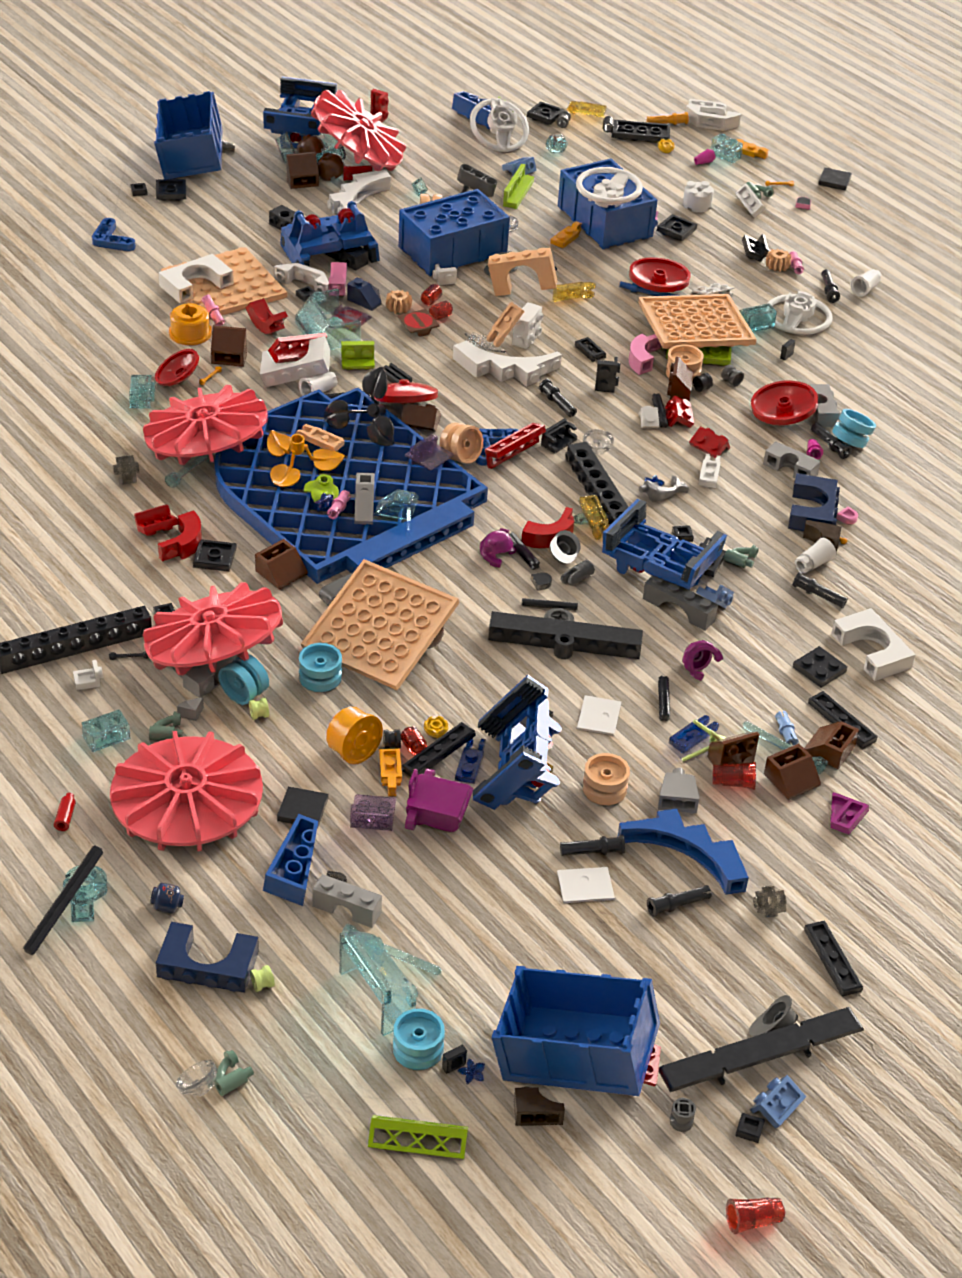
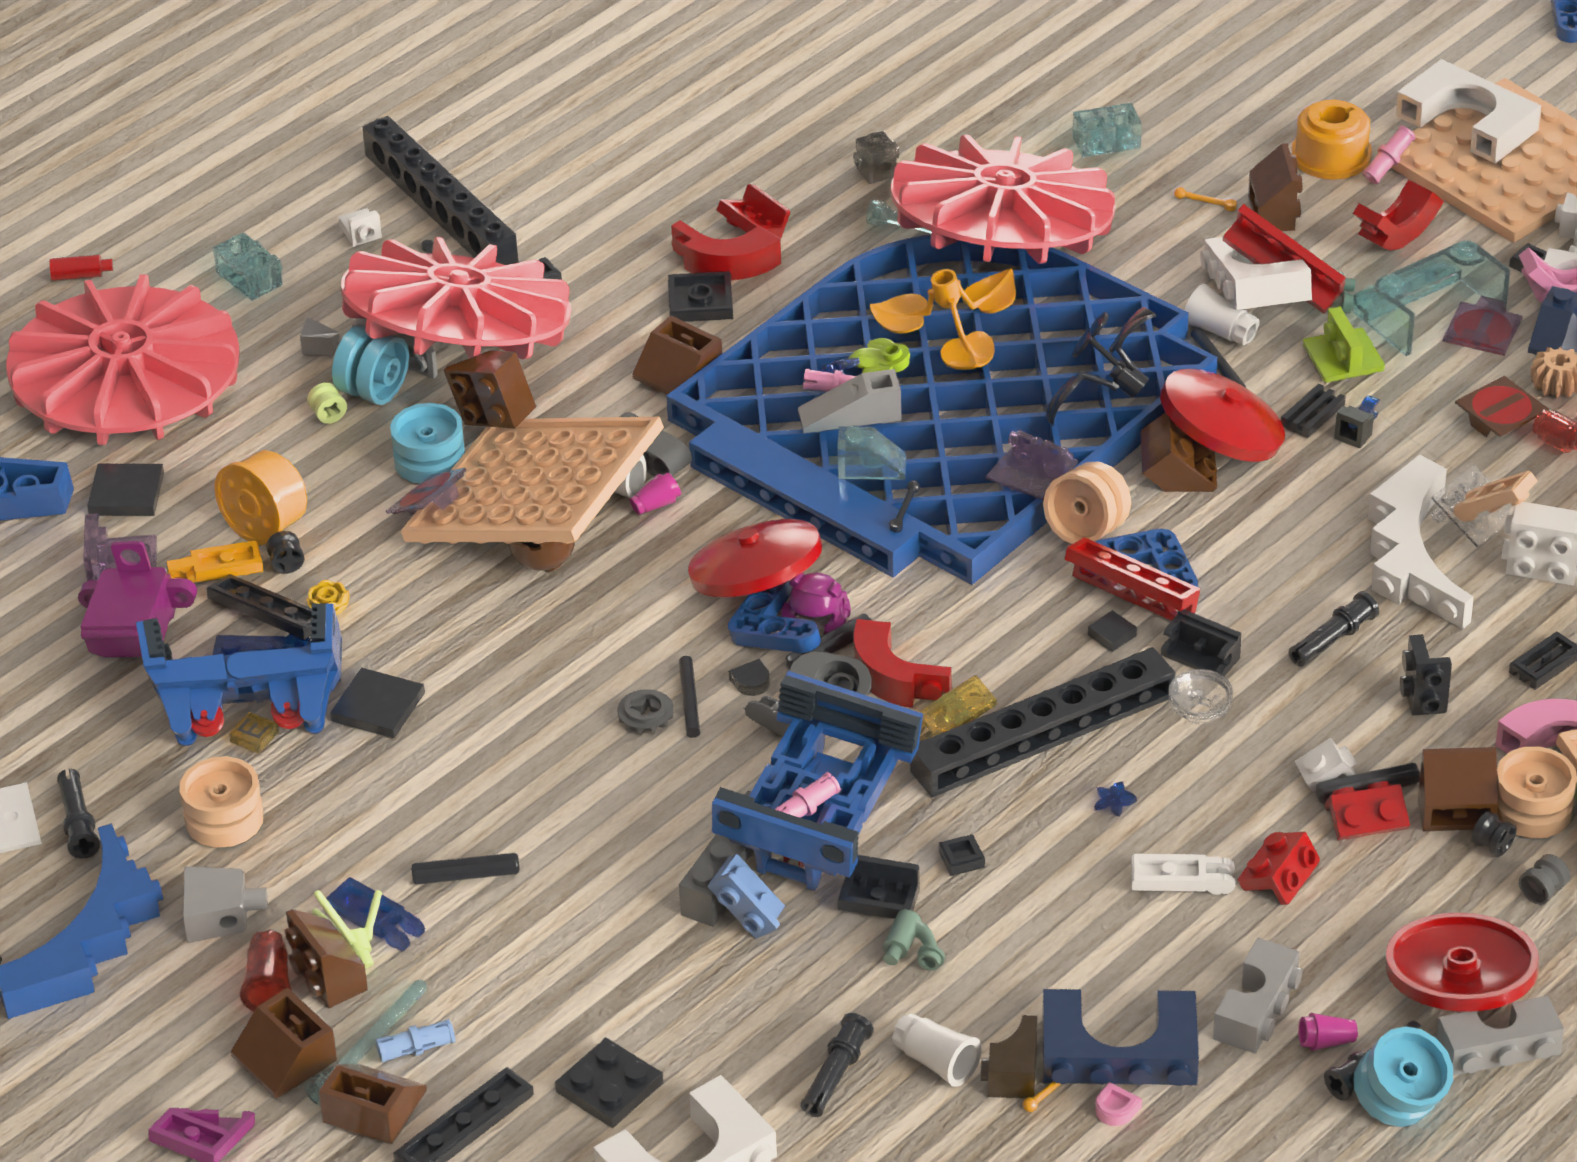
camera: 85 degrees right, 0 degrees up
(161, 731) = (258, 324): sand green plant -> none
(177, 368) = (1181, 153): red dish -> none
(299, 626) = (491, 390): none -> reddish brown slope
(321, 438) = (1021, 333): light nougat hinge -> none
(367, 670) = (436, 488): none -> piece
(413, 740) = (286, 575): clear red brick -> none
(414, 364) = (1354, 424): none -> pearl dark grey piece
(455, 506) = (896, 525): none -> black hinge
(462, 558) = (755, 558): none -> red dish
(503, 570) = (752, 626): none -> blue beam
(538, 462) = (1112, 631): none -> black tile
(565, 635) = (590, 722): black hinge -> none
(599, 715) = (409, 794): white piece -> none
(661, 493) = (1074, 808): flat silver animal -> none
(680, 550) = (806, 800): none -> bright pink pin
(698, 656) = (568, 886): magenta helmet -> none

